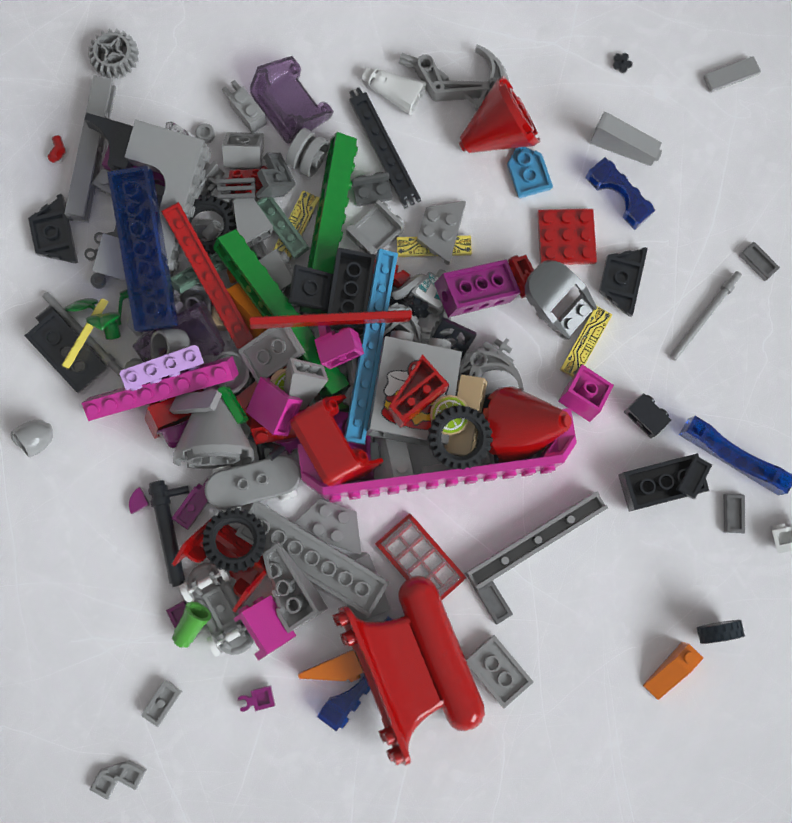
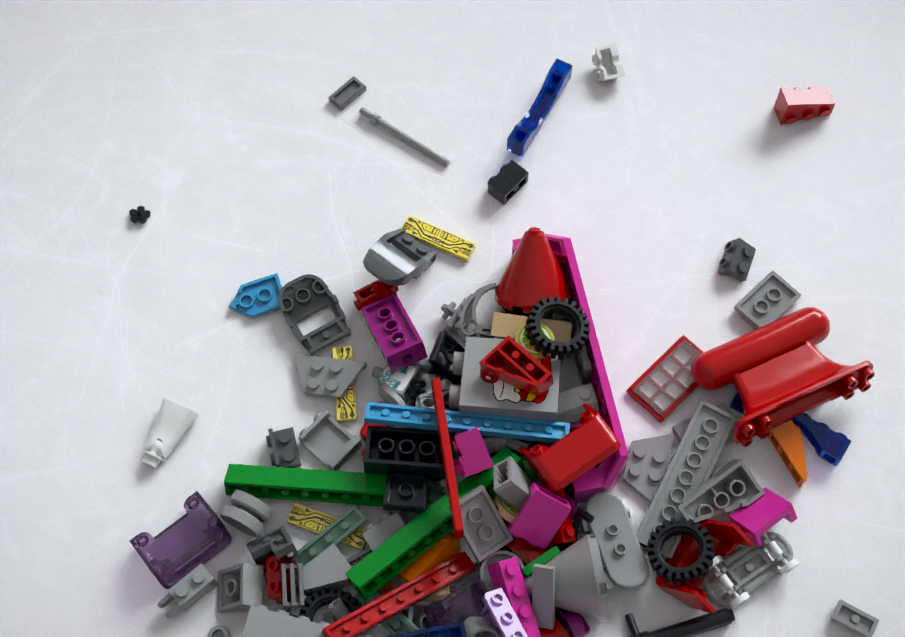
camera: 85 degrees left, 15 degrees down
(176, 612) = (760, 611): magenta tile -> none
(190, 624) = (771, 592): bright green plant -> none
(191, 506) = (644, 606): magenta hinge -> none
(261, 699) = (833, 520): magenta plate -> none
(384, 148) = (234, 440): black hinge -> none
(443, 89) = (169, 386): light grey piece -> none
(494, 602) = (702, 310): flat silver tile -> none
(499, 122) = (213, 320): red cone -> none
(523, 209) = (306, 297): none -> dark grey slope
(536, 540) = (640, 274): light grey tile -> none
(549, 646) = (737, 259): none -> dark grey bracket
(567, 236) = (331, 257): red plate -> none
(586, 393) = (491, 234): dark pink slope -> none
(606, 176) = (299, 196): clear blue arch -> none
(622, 278) = (372, 207): black wing -> none
(625, 140) = (227, 207): light grey slope -> none
(655, 483) = (572, 166): black brick -> none
(673, 670) = (740, 155): orange slope -> none
(694, 477) = (566, 137): black tile -> none
(720, 631) = (703, 117): black wheel -> none
(732, 74) = (154, 117): light grey tile -> none
(734, 513) = (592, 111): flat silver tile -> none
(738, 752) = (803, 104): none -> wedge

